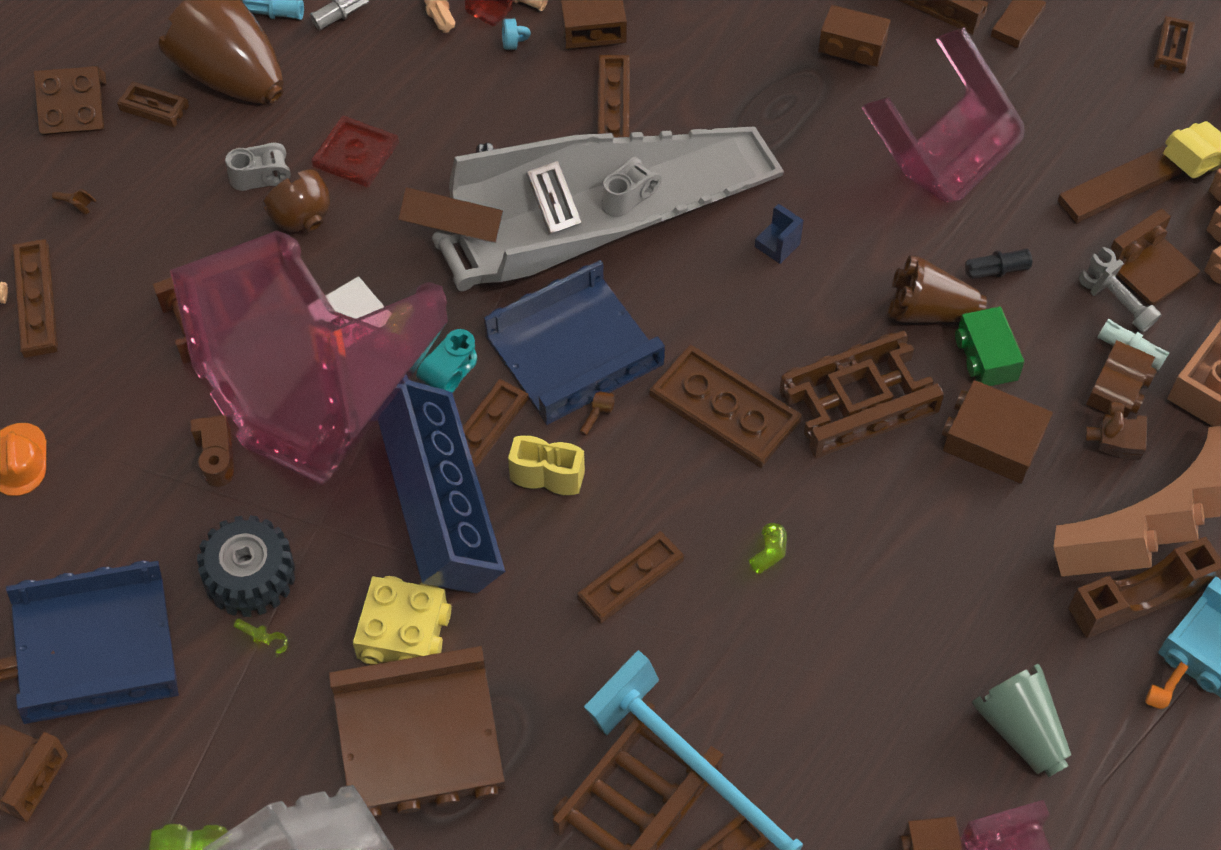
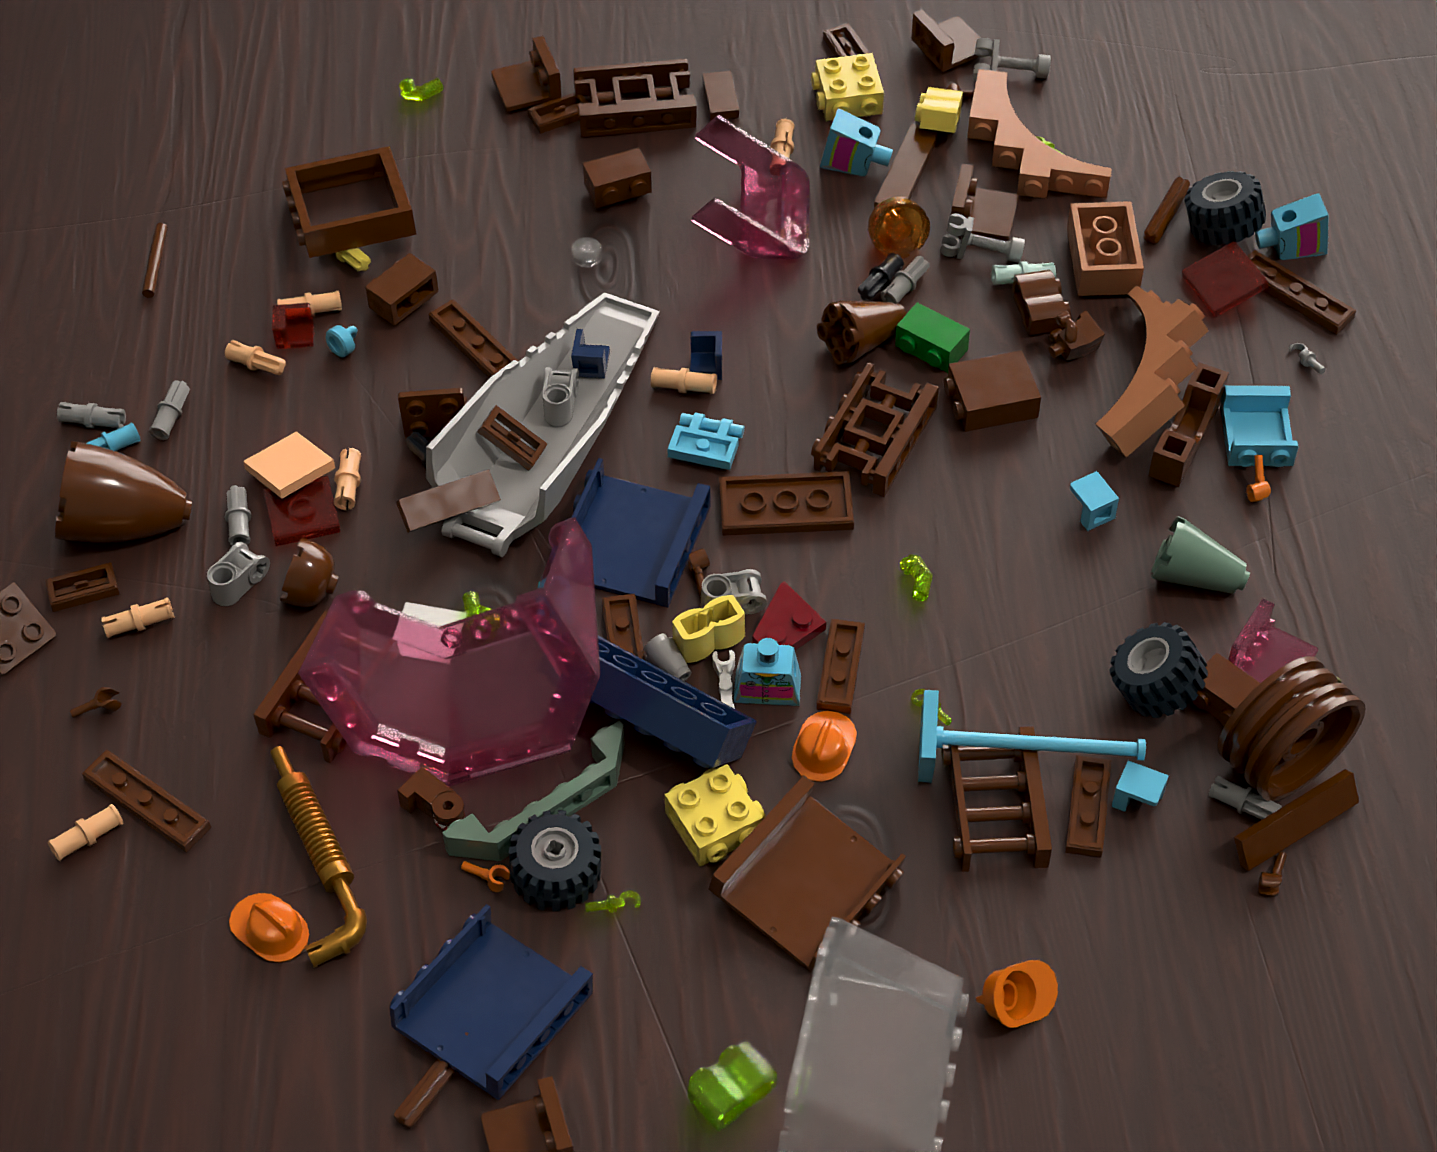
camera: 40 degrees left, 5 degrees down
(99, 435) = (325, 856): none -> pearl gold piece
(162, 153) = (137, 617): none -> light nougat pin
(196, 535) = (486, 874): none -> orange hand
(304, 124) = (238, 515): none -> light grey axle
(377, 108) = (289, 464): none -> light nougat tile
(378, 508) = (471, 840): none -> sand green slope
(408, 147) = (347, 478): none -> light nougat pin
(495, 466) = (665, 655): none -> light grey cone
(509, 130) = (429, 410): none -> reddish brown bracket
(519, 526) = (724, 671): none -> white piece
(551, 634) = (824, 746): none -> orange piece
(552, 535) = (768, 674): none -> medium azure torso
(606, 453) = (737, 585): none -> light grey piece
(620, 508) = (789, 620): none -> dark red wing
(668, 670) = (942, 716): none -> clear neon green hand
(682, 172) = (589, 359): none -> dark blue panel
(704, 312) = (705, 447): none -> medium azure plate
(742, 242) = (683, 380): none -> light nougat pin
(773, 83) = (586, 252): none -> clear tile
(882, 791) = (1158, 670): none -> black wheel
(988, 593) = (1097, 500): none -> medium azure panel
(1017, 281) = (905, 281): none -> light grey axle
(1037, 85) = (783, 137): none -> light nougat pin
(1053, 229) = (898, 226): none -> clear orange cylinder
(1084, 131) = (853, 145): none -> medium azure torso
(1135, 78) = (848, 85): none -> light yellow brick

